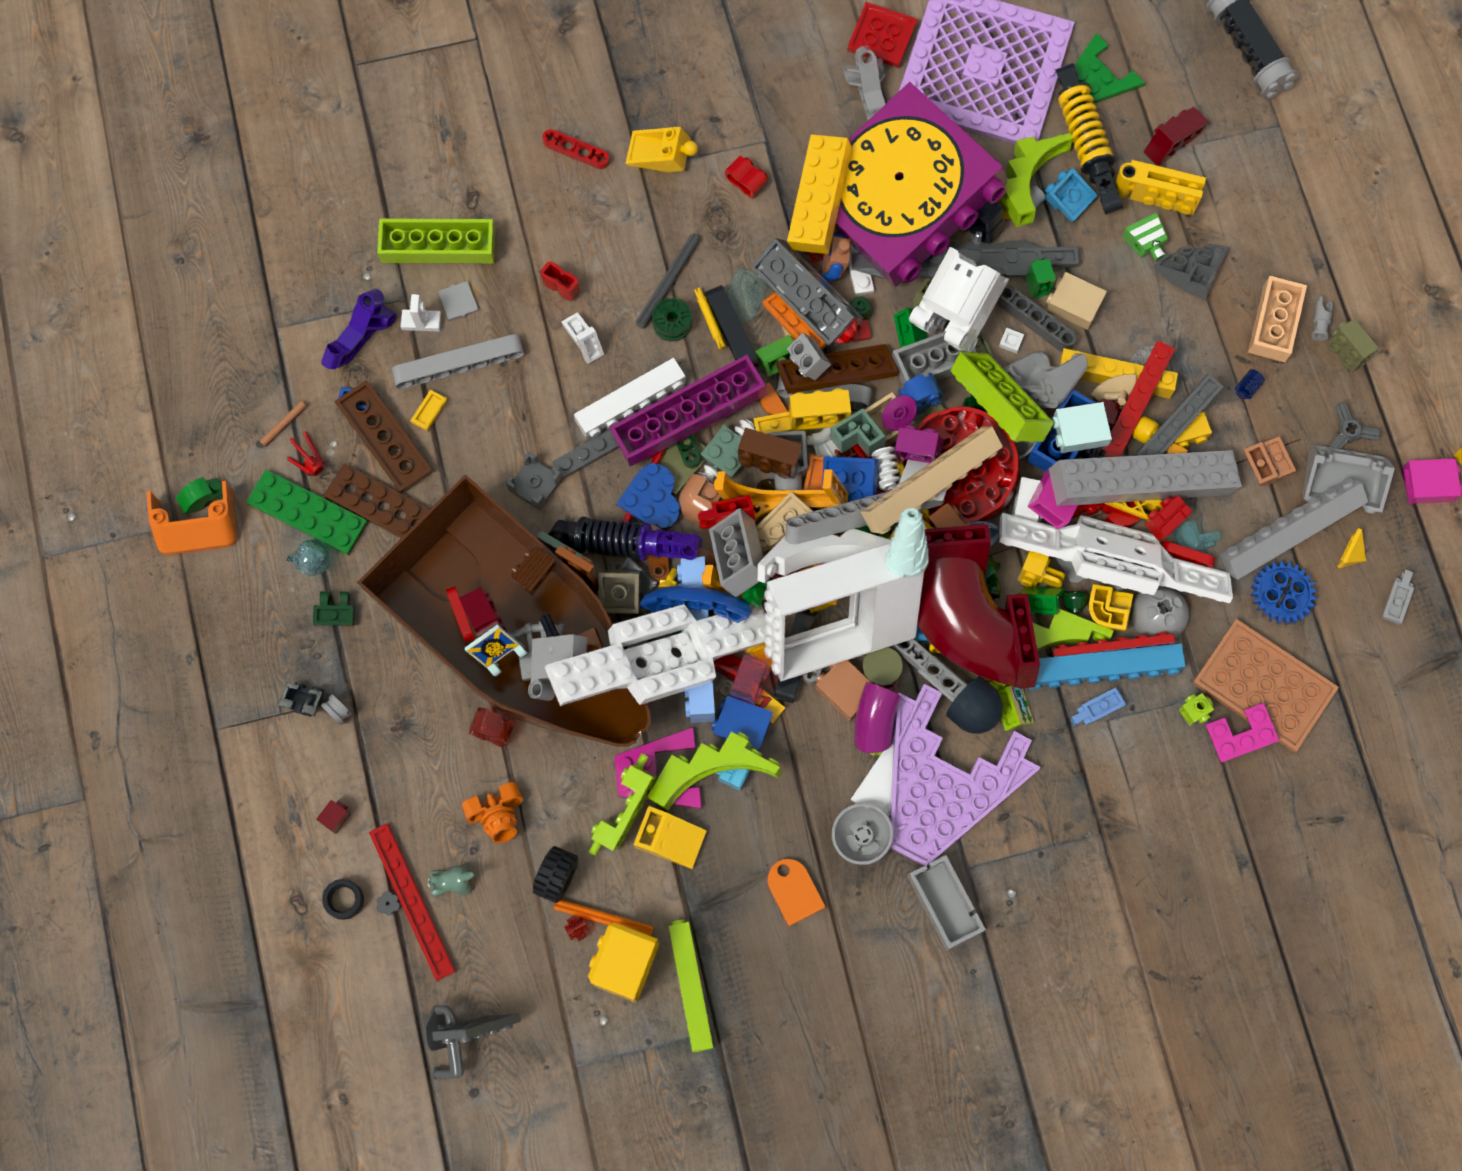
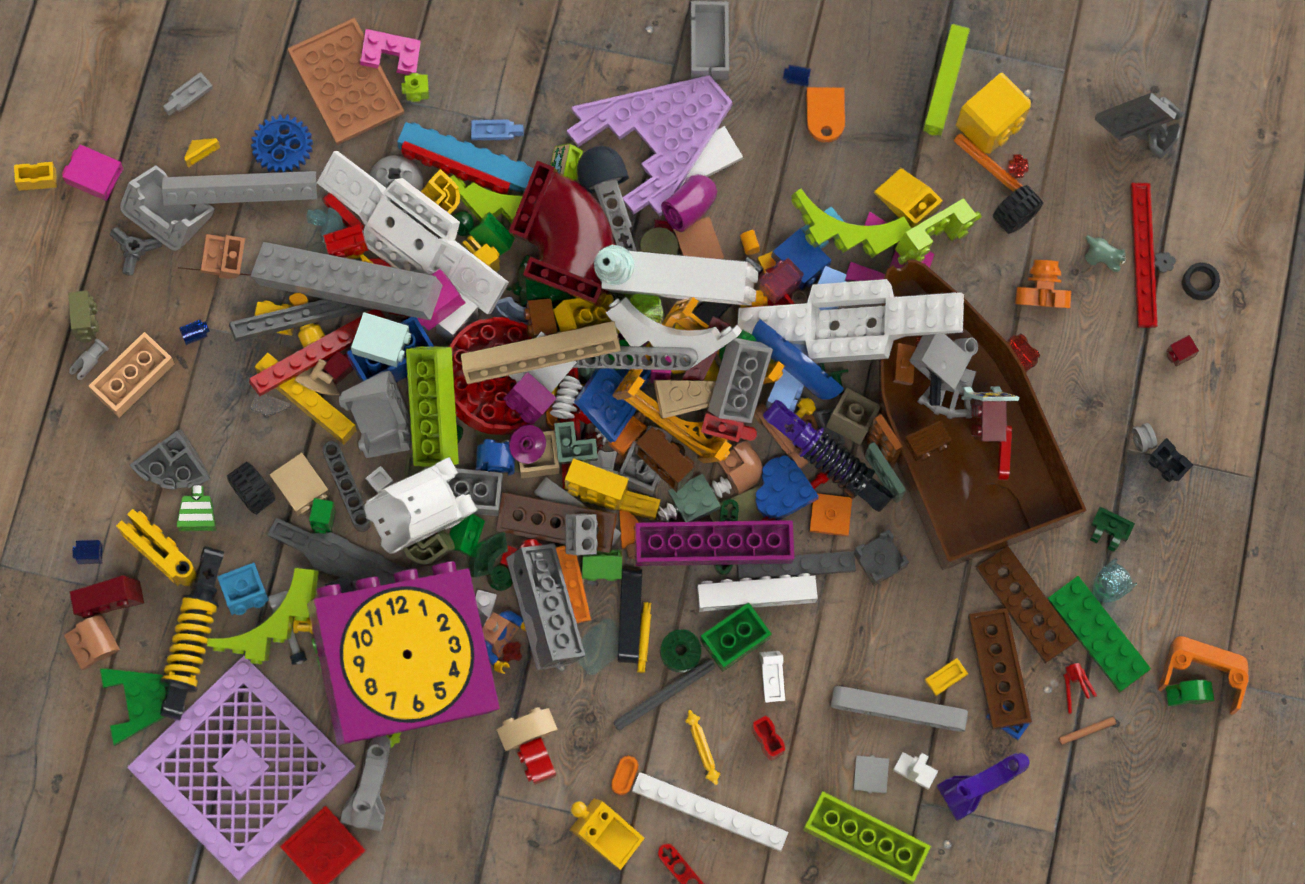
camera: 160 degrees left, 0 degrees up
(581, 207) = (710, 811): none -> white plate
(598, 500) = (831, 515): none -> orange plate
(613, 253) = (702, 747): none -> yellow wheel
(629, 349) = (735, 637): none -> green brick
(667, 203) = (624, 775): none -> orange tile
(768, 194) = (526, 728): none -> tan brick
(798, 717) = (750, 242): none -> light orange brick
(819, 194) = (488, 679): yellow brick -> none
(841, 914) = (797, 75): none -> clear blue brick
(852, 829) = (756, 112): light grey piece -> none
(883, 315) = (486, 553): none -> clear green brick
(1114, 270) = (251, 487): none -> black tyre
(1164, 98) = (91, 641): none -> nougat brick
(1214, 163) = (88, 552): none -> clear blue brick

